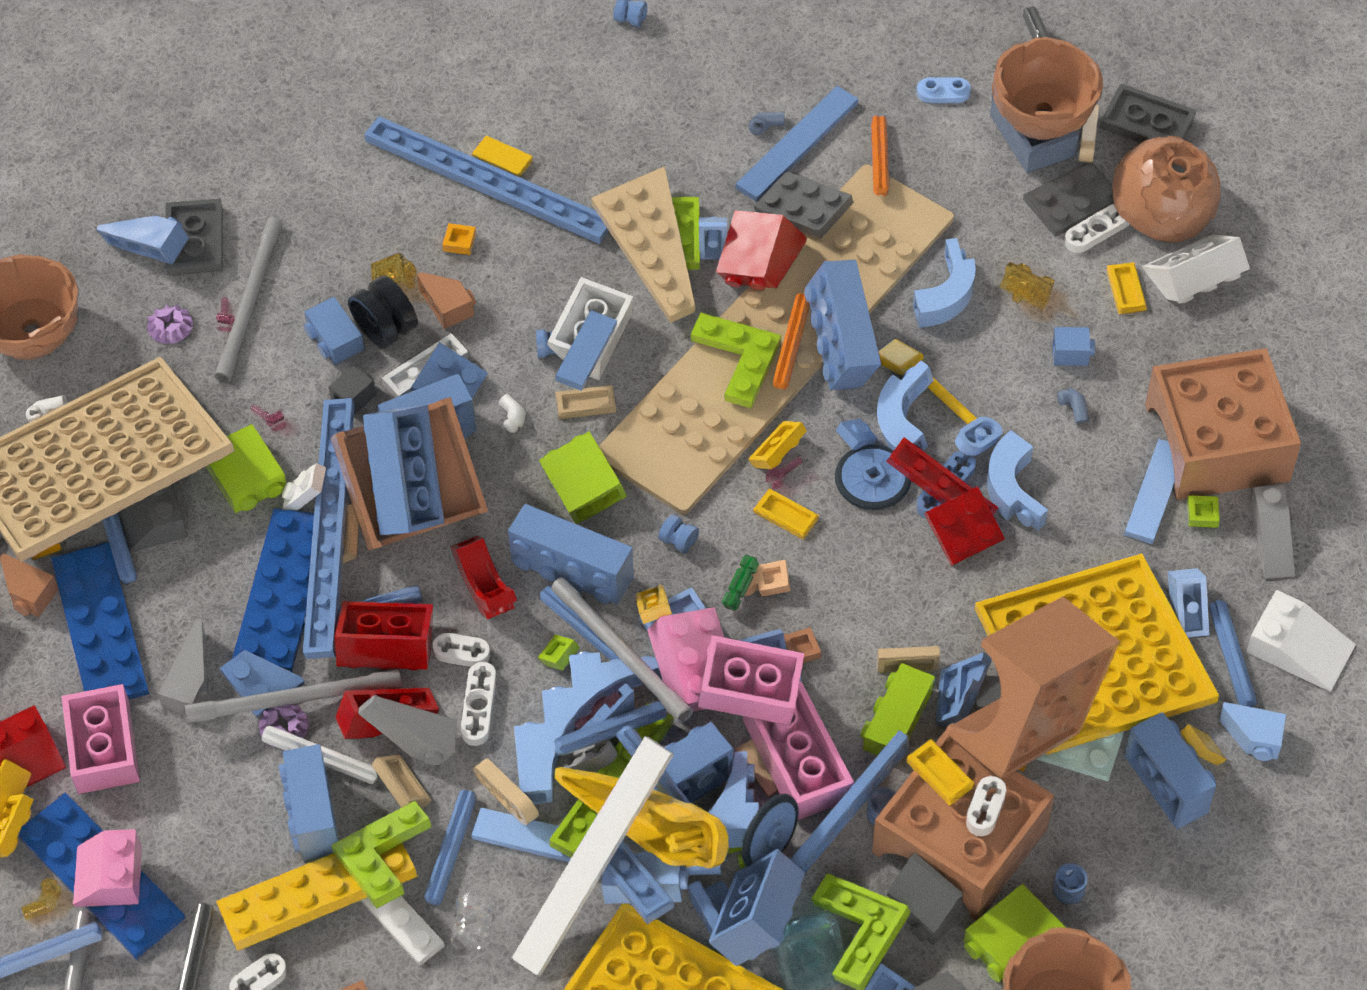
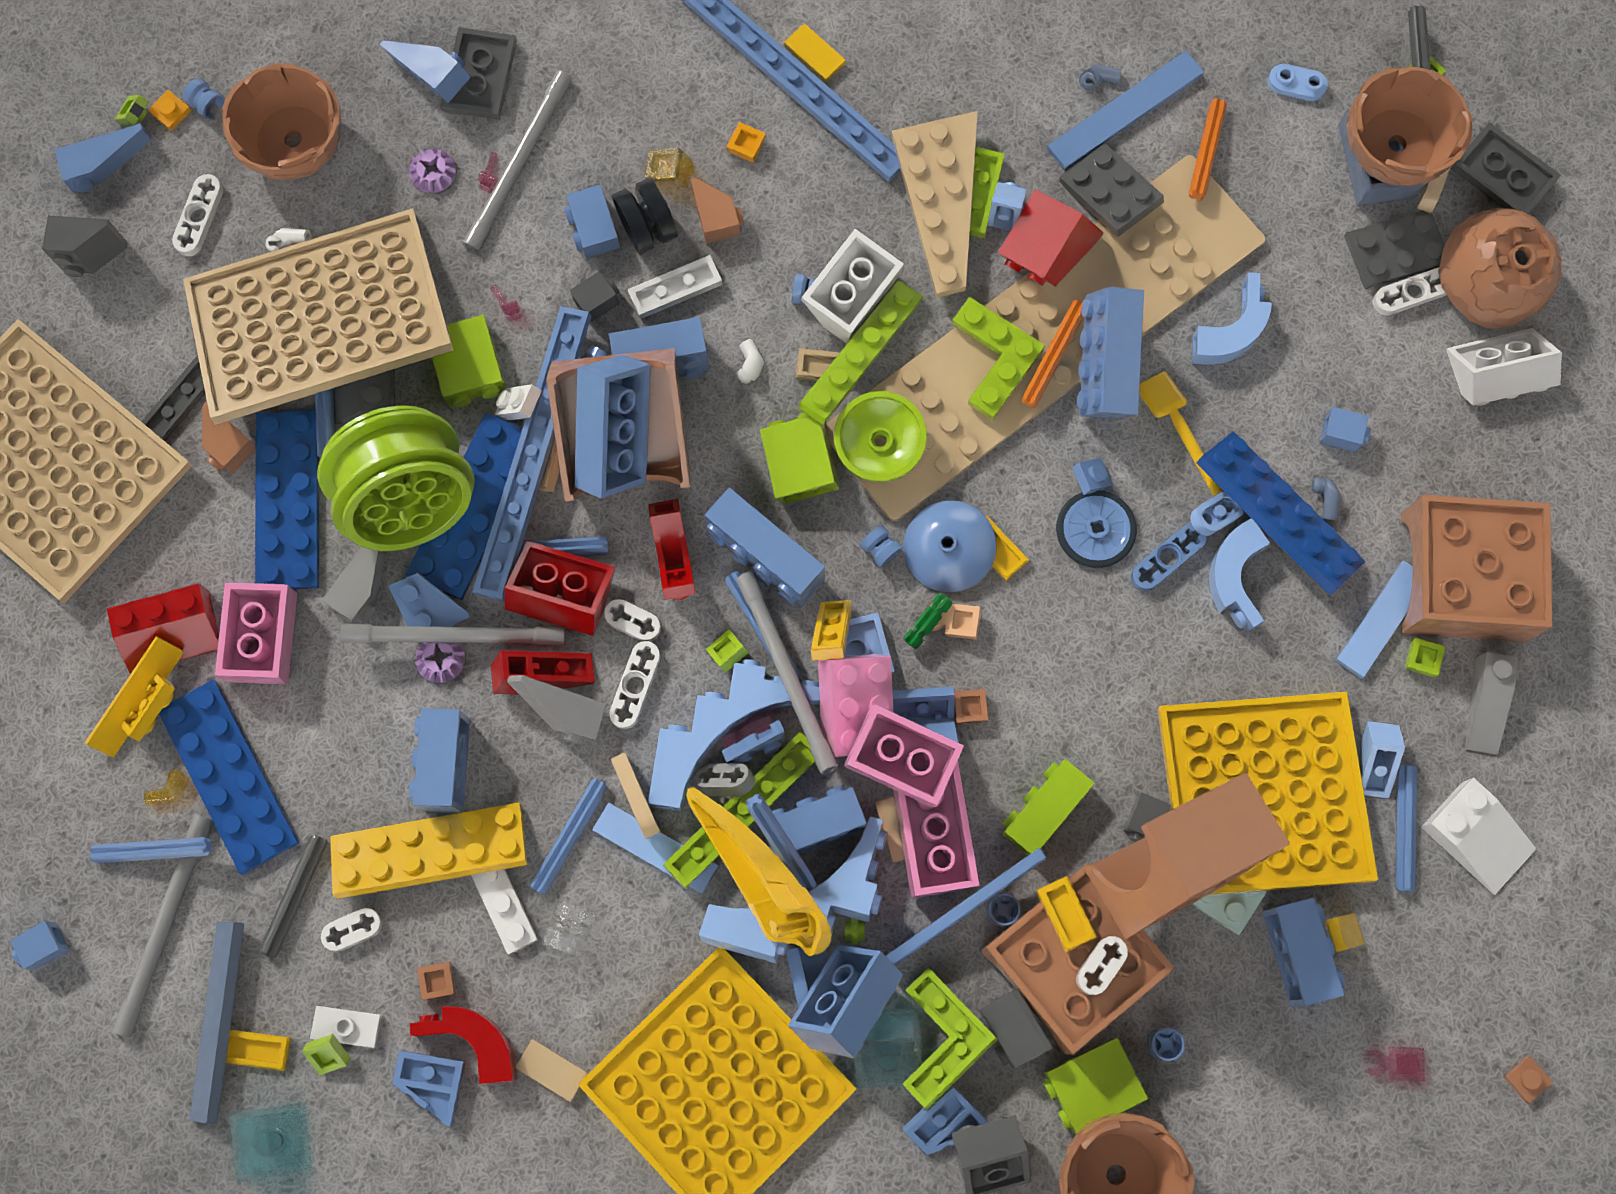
camera: 15 degrees right, 20 degrees up
(108, 869) = (231, 783): bright pink slope -> none
(185, 566) = (395, 478): none -> lime wheel
(331, 758) = (465, 703): white axle -> none
(361, 851) = (481, 821): lime plate -> none
(400, 780) = (537, 754): tan tile -> none
(447, 363) = (695, 298): medium blue wing -> none
(586, 350) = (838, 319): medium blue tile -> none
(592, 856) = (698, 906): white tile -> none
(609, 728) = (751, 760): medium blue axle -> none
(614, 378) = (860, 352): none -> lime plate
(638, 884) = (731, 941): medium blue tile -> none
(647, 425) = (875, 417): none -> lime dish
(753, 532) = (954, 567): none -> medium blue dish
(770, 828) = (880, 919): medium blue wheel -> none
(777, 445) = (1008, 469): yellow plate -> none
(781, 473) = (1006, 501): clear pink hand -> none
(894, 404) = (1135, 466): light blue arch -> none
(917, 657) = (1074, 750): tan tile -> none
(929, 473) = (1163, 561): red tile -> none
(959, 688) = (1116, 800): medium blue wing -> none
(964, 526) = (1173, 614): red plate -> none
(1026, 285) = (1317, 345): clear yellow hips -> none
(1036, 422) = (1281, 512): none -> blue plate
(1126, 288) = (1422, 371): yellow tile -> none
(1254, 729) = (1404, 924): light blue slope -> none
(1293, 849) = (1402, 1063): none -> clear pink plate

